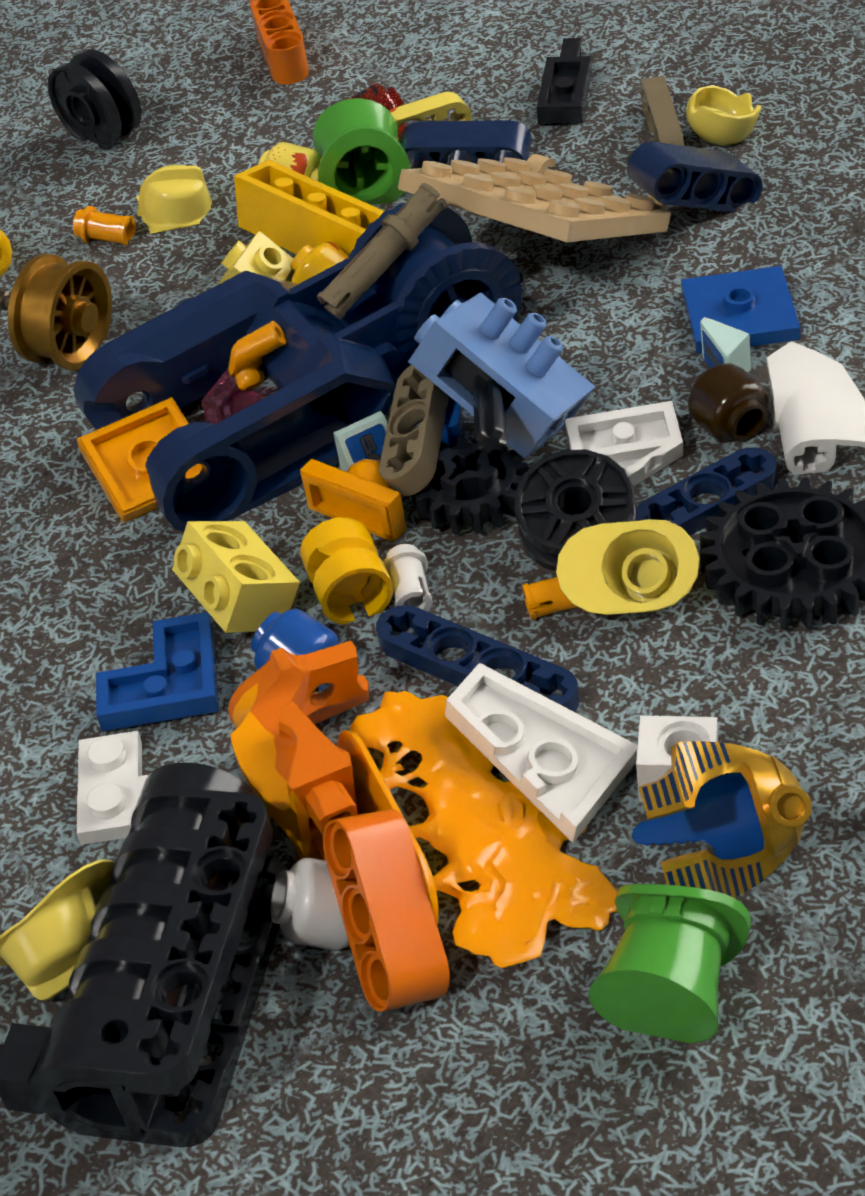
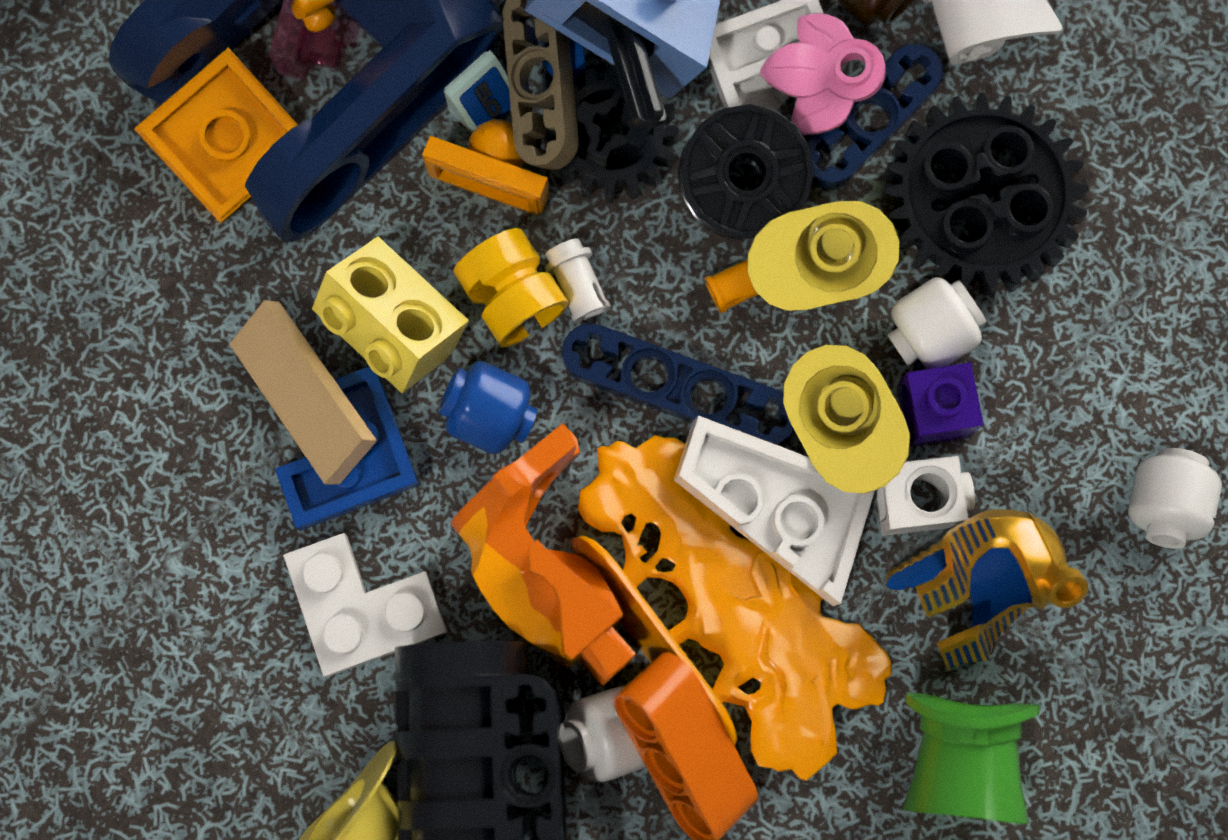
camera: 20 degrees left, 35 degrees up
(140, 620) = (302, 392): none -> tan tile
(615, 678) = (846, 418): none -> light yellow piece
(667, 453) = (815, 74): none -> bright pink plate
(714, 685) = (940, 404): none -> dark purple brick
(725, 634) = (936, 324): none -> white head

